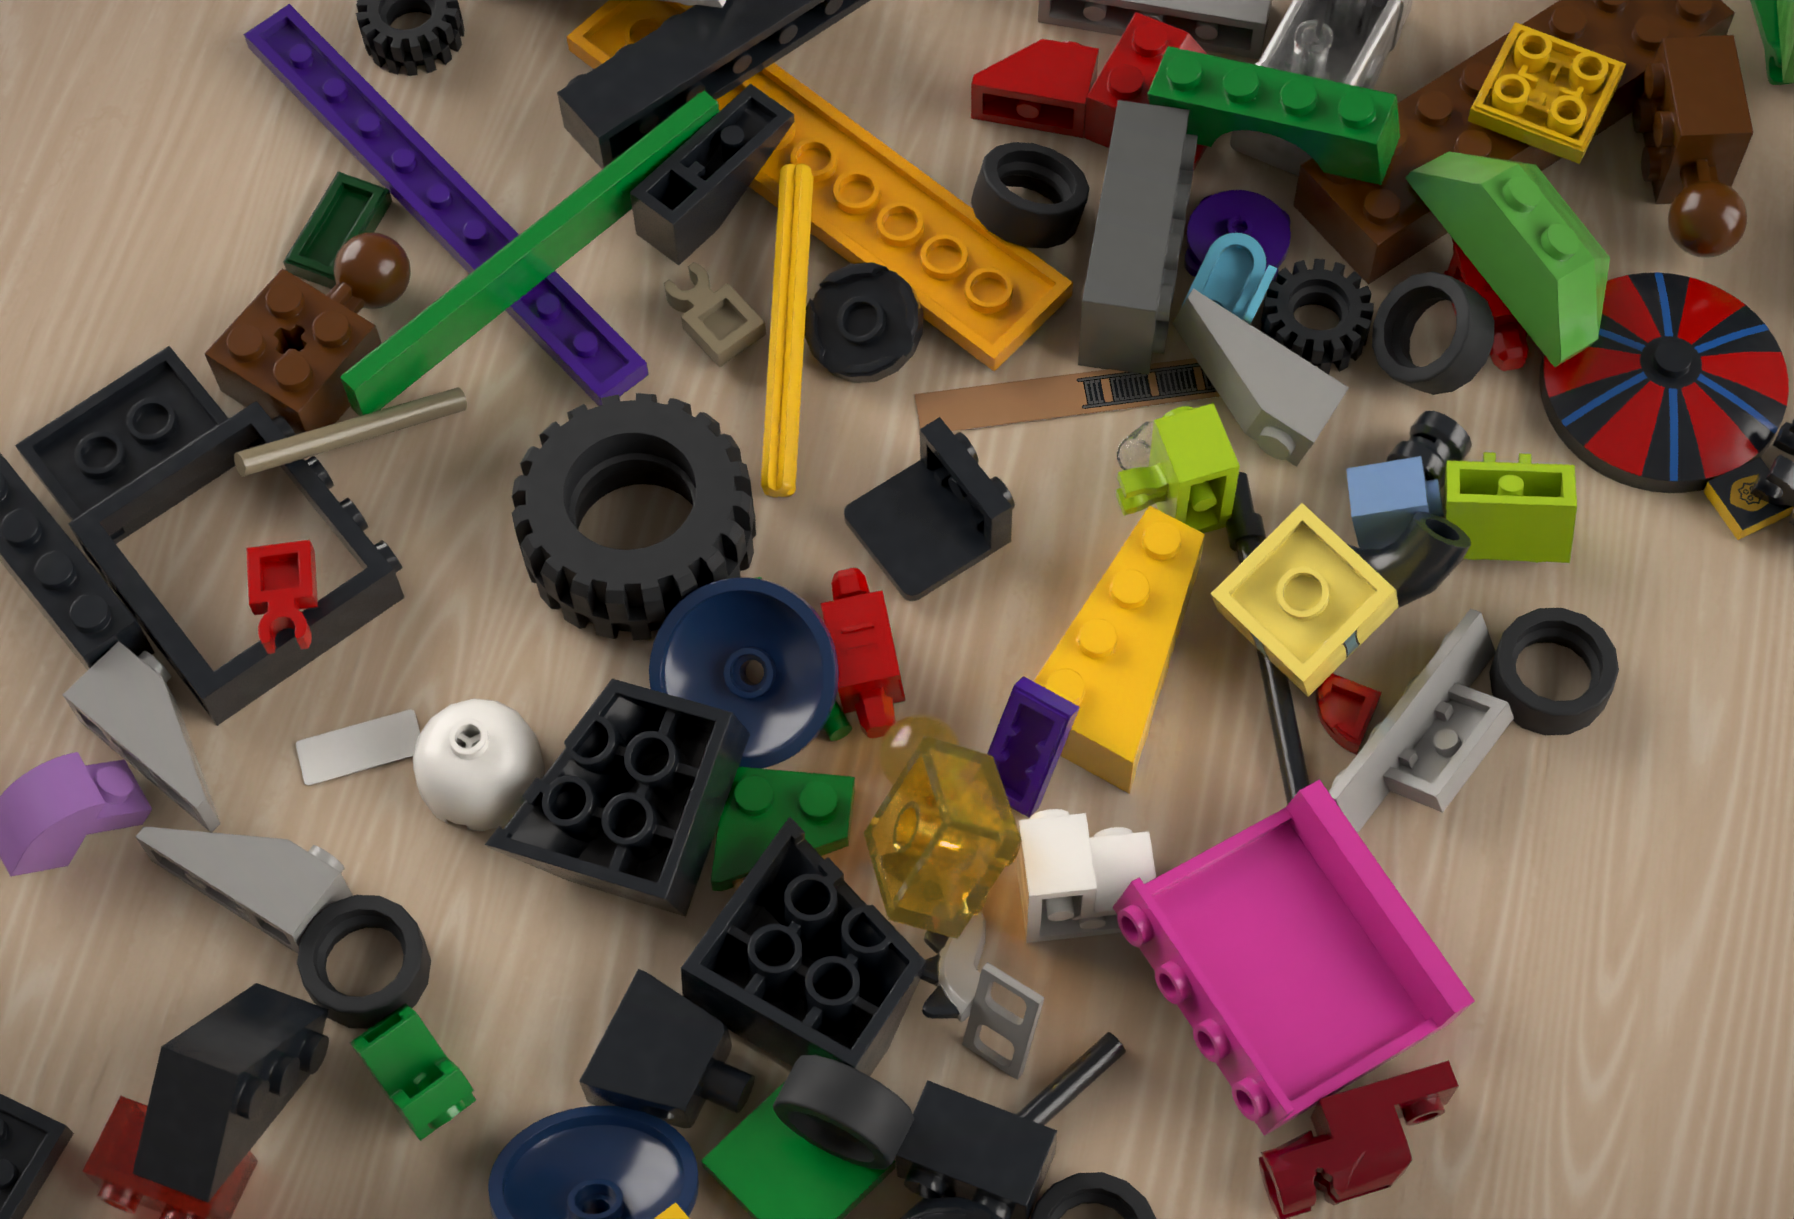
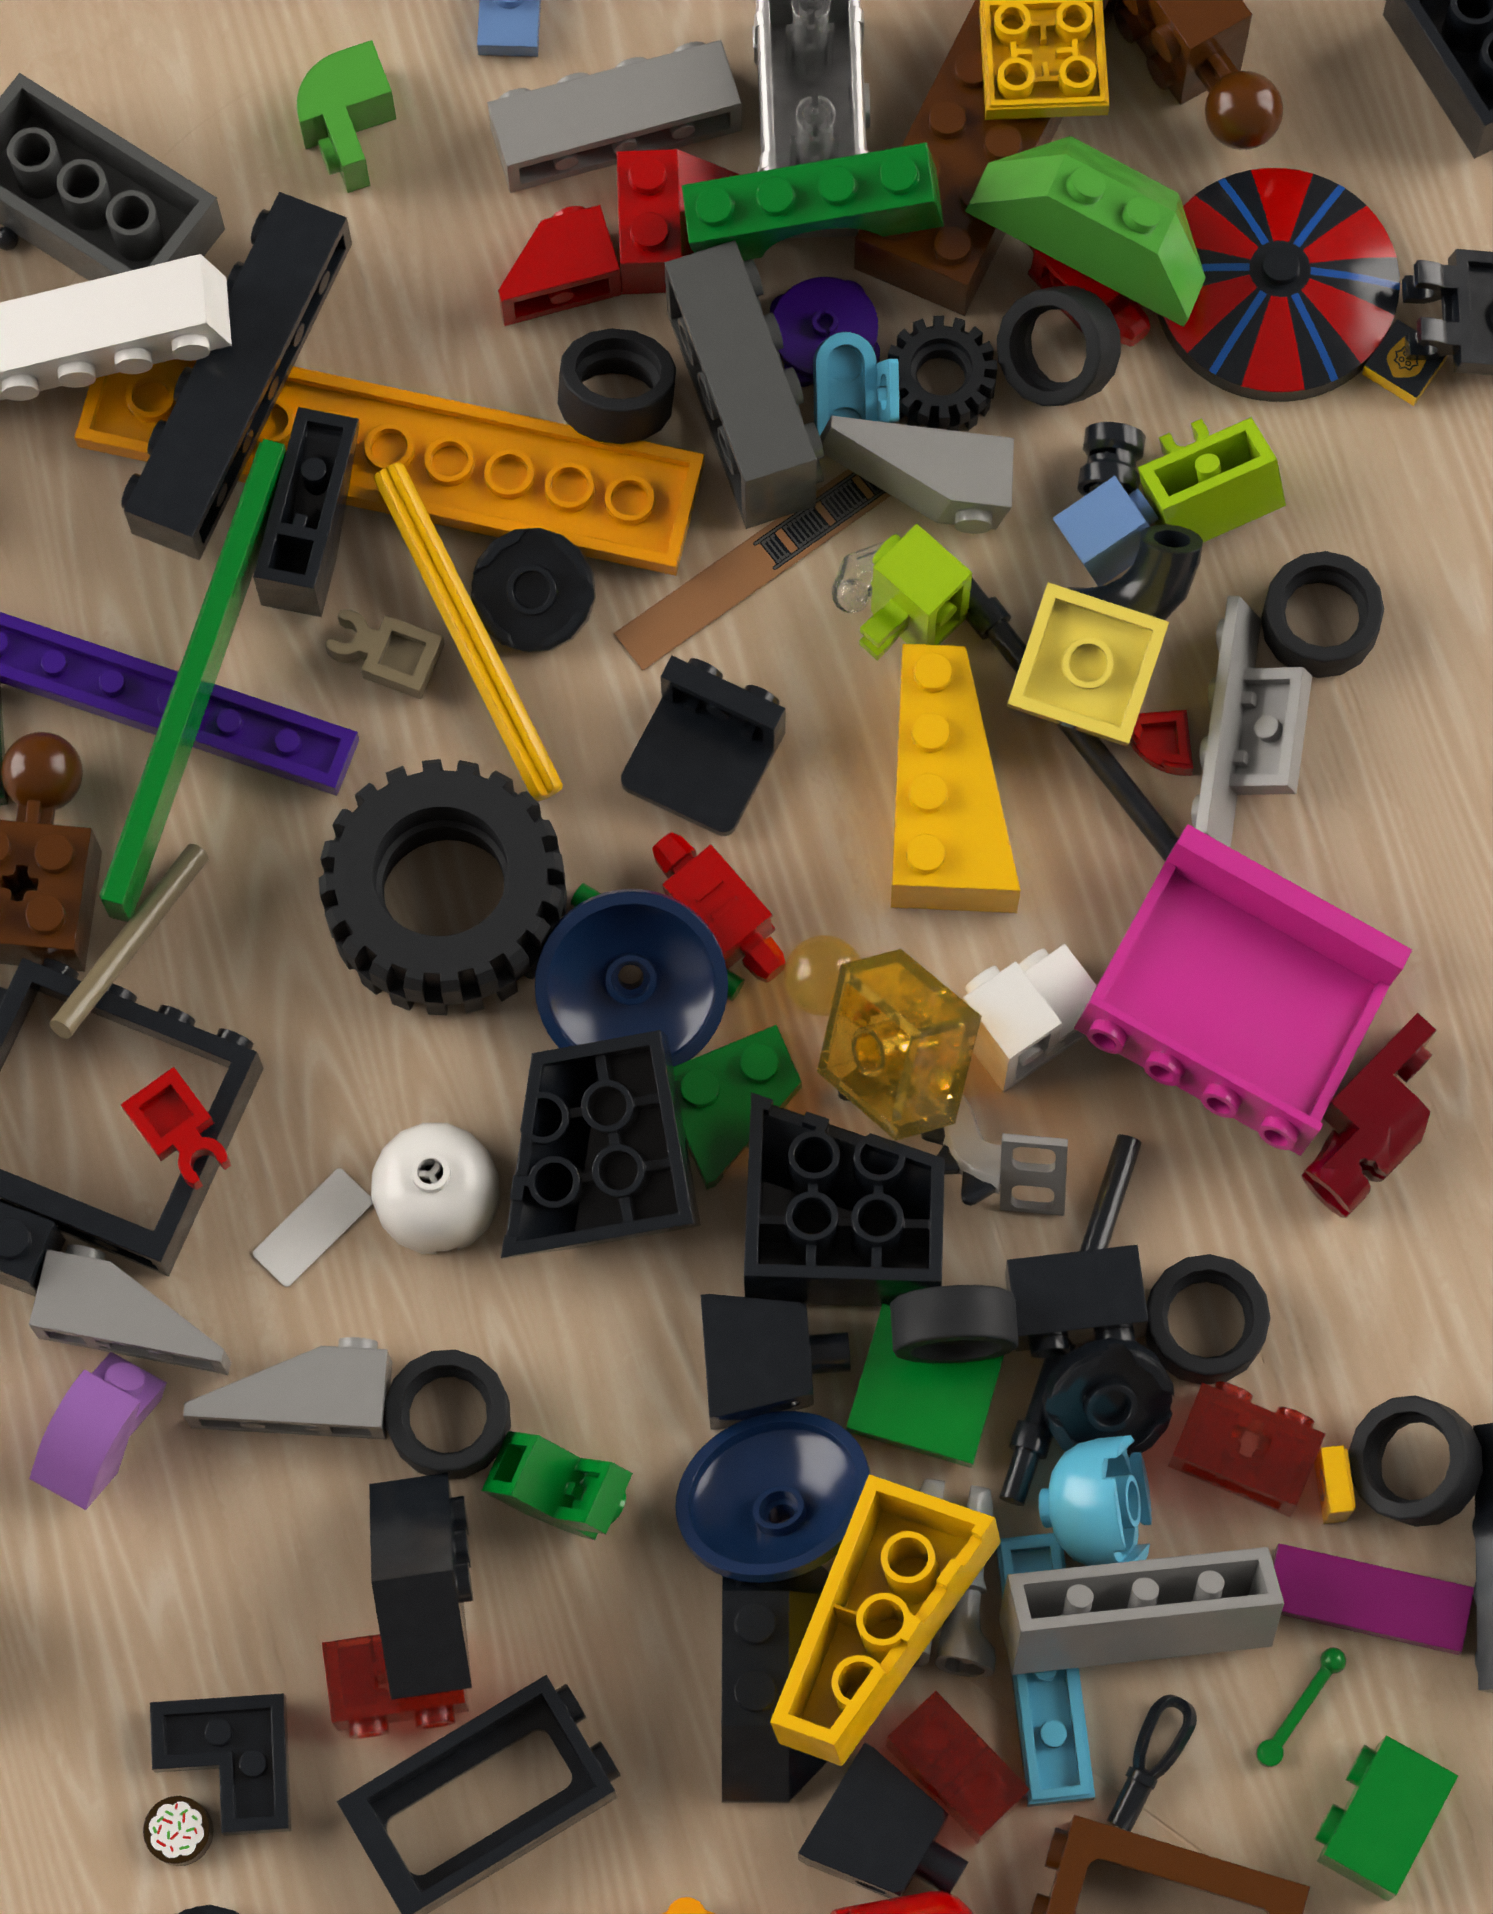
camera: 30 degrees left, 10 degrees up
(1030, 742) = (919, 914): dark purple plate -> none

